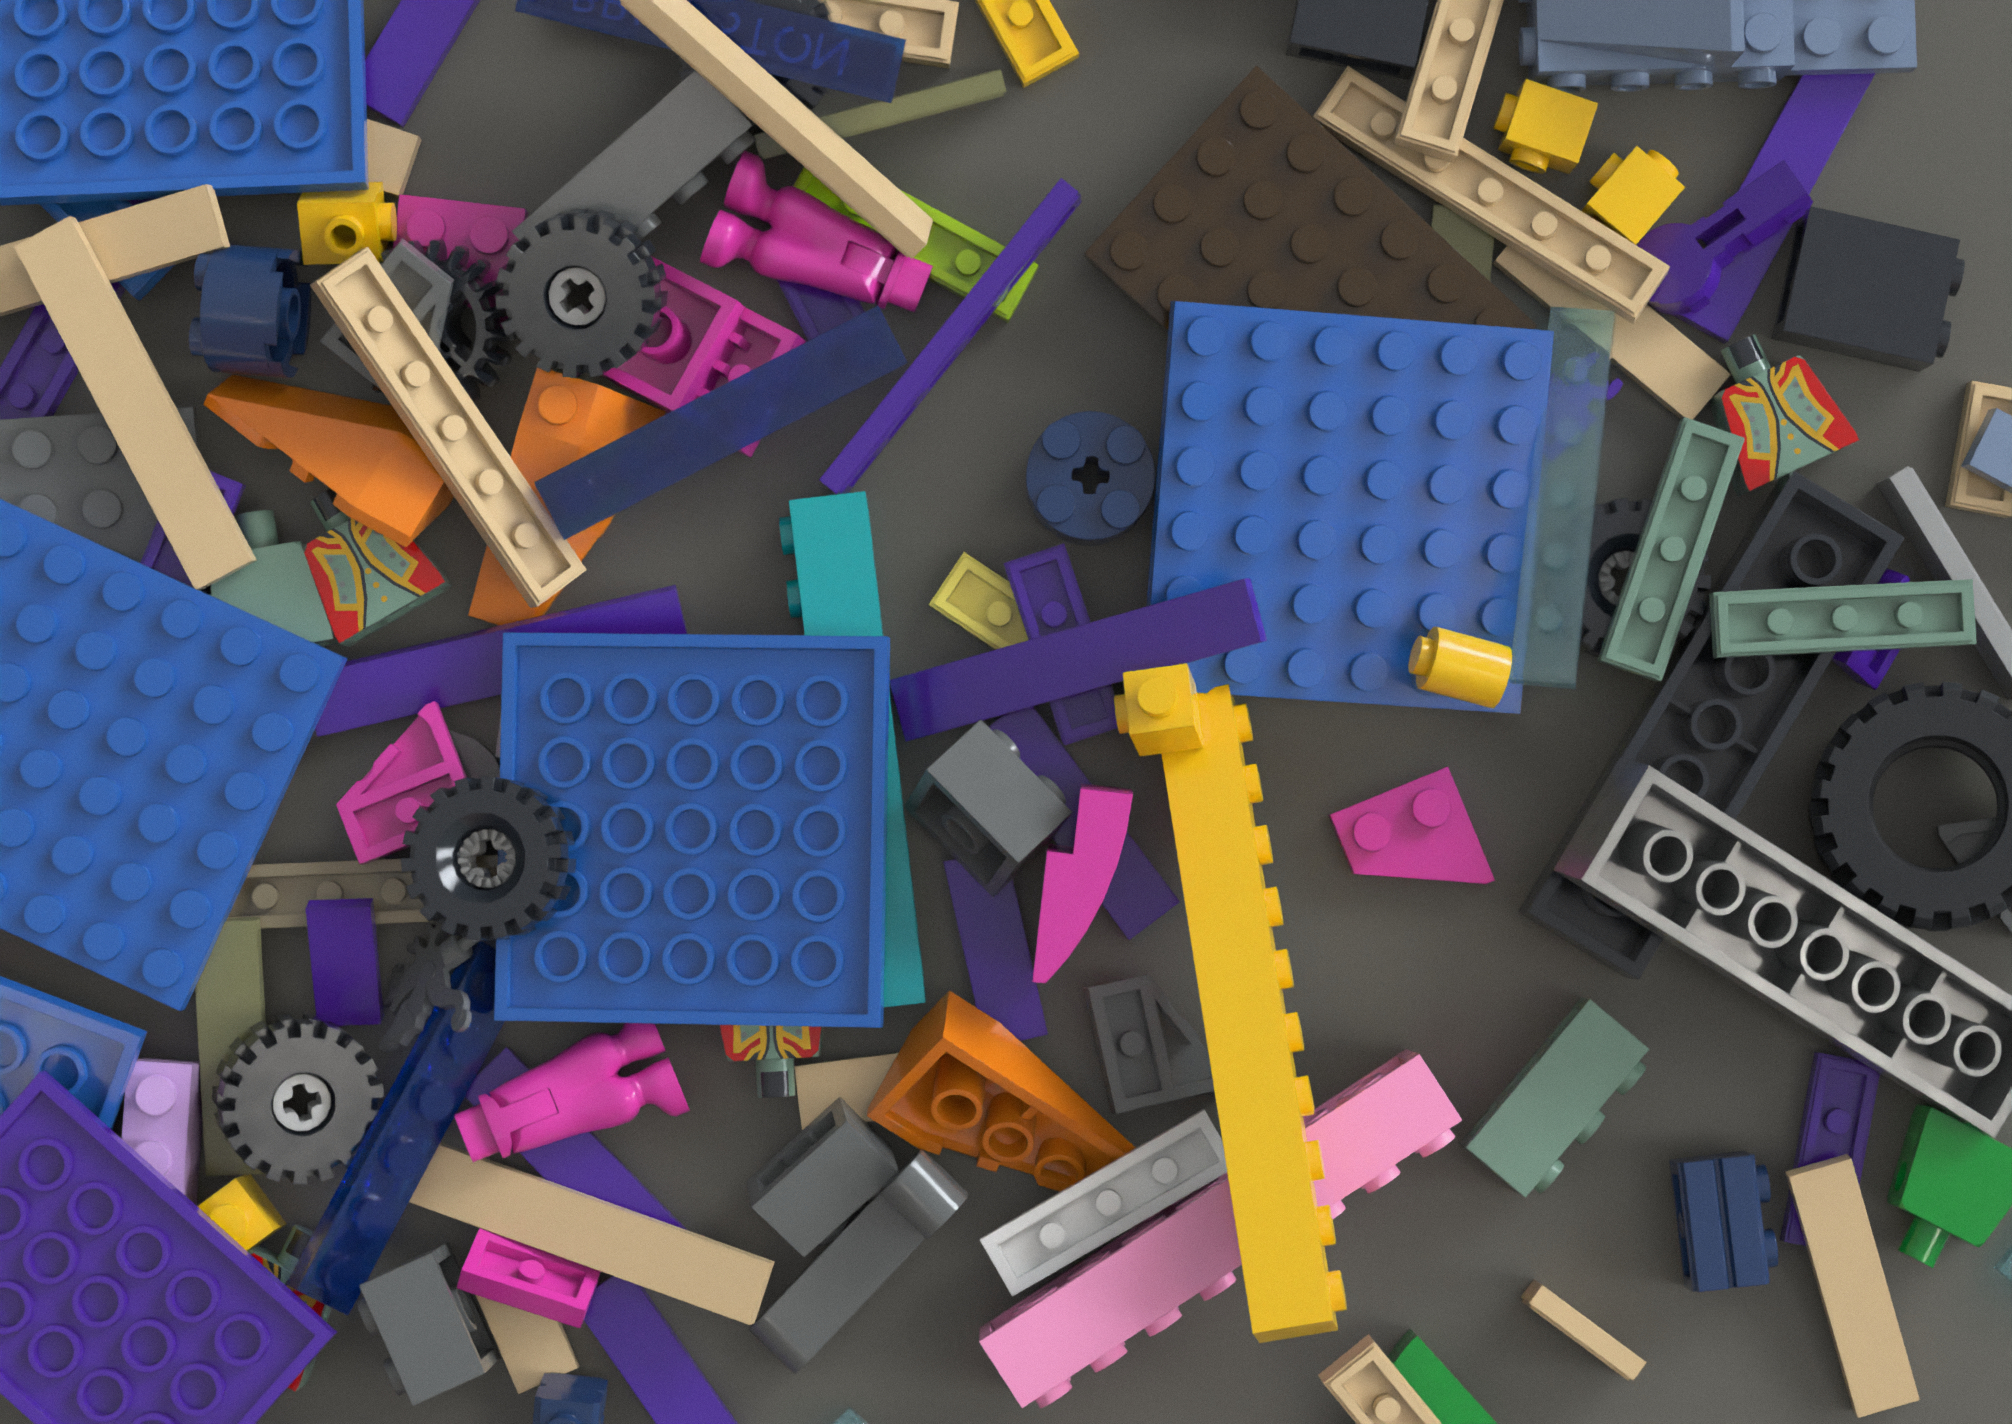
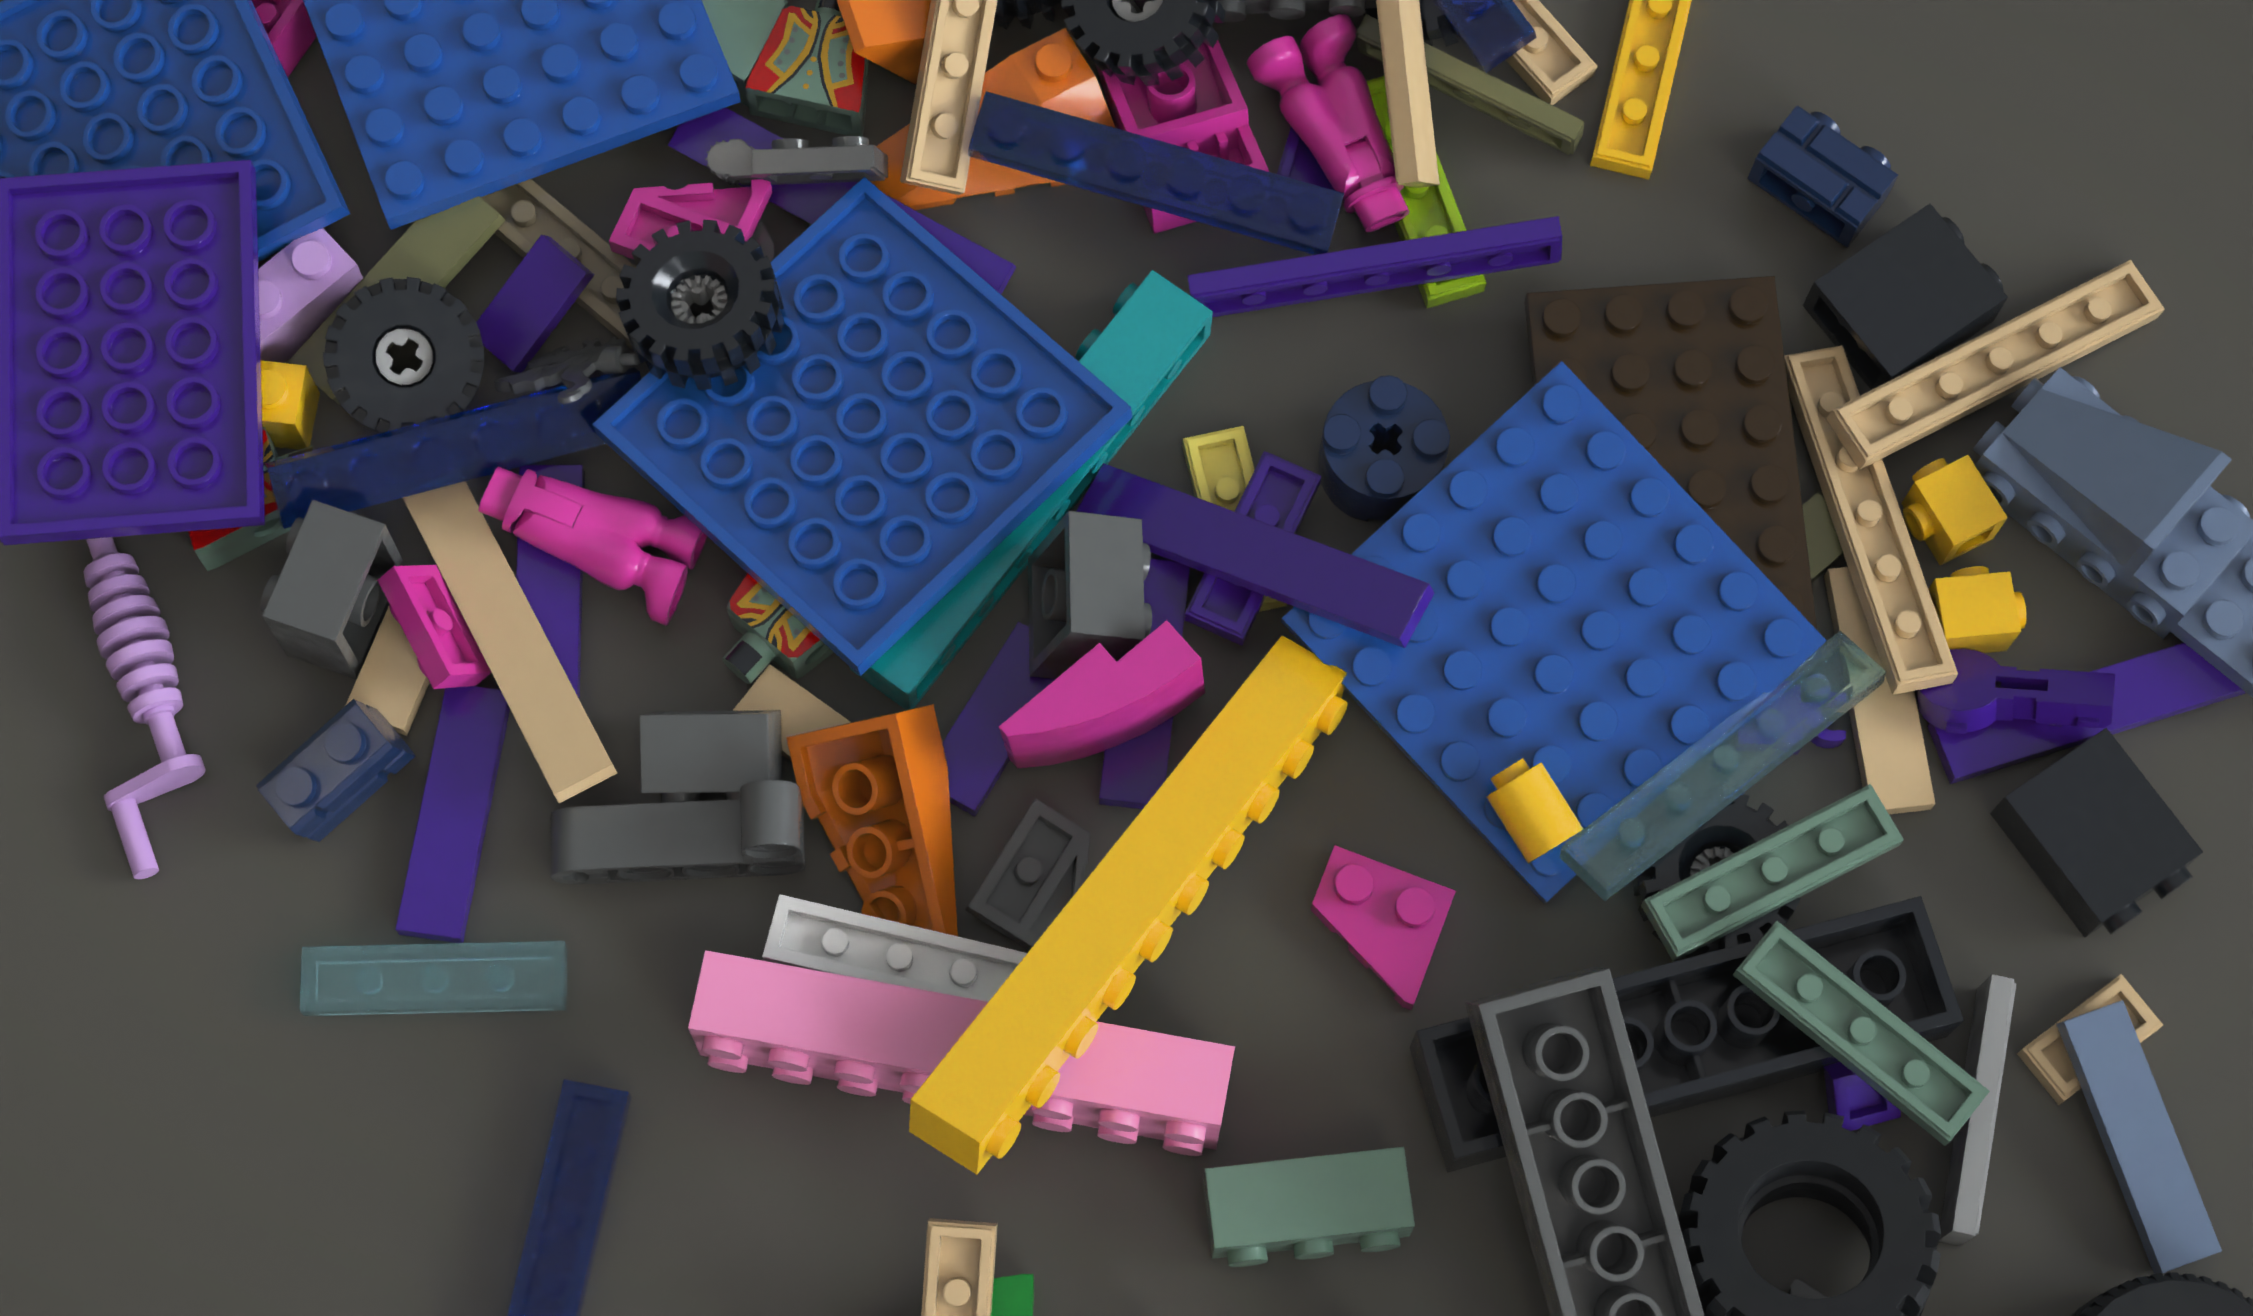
camera: 45 degrees right, 15 degrees down
(437, 669) = (797, 163): none -> dark grey hinge
(1160, 710) = (1279, 634): yellow brick -> none
(1779, 413) = (1945, 860): torso -> none

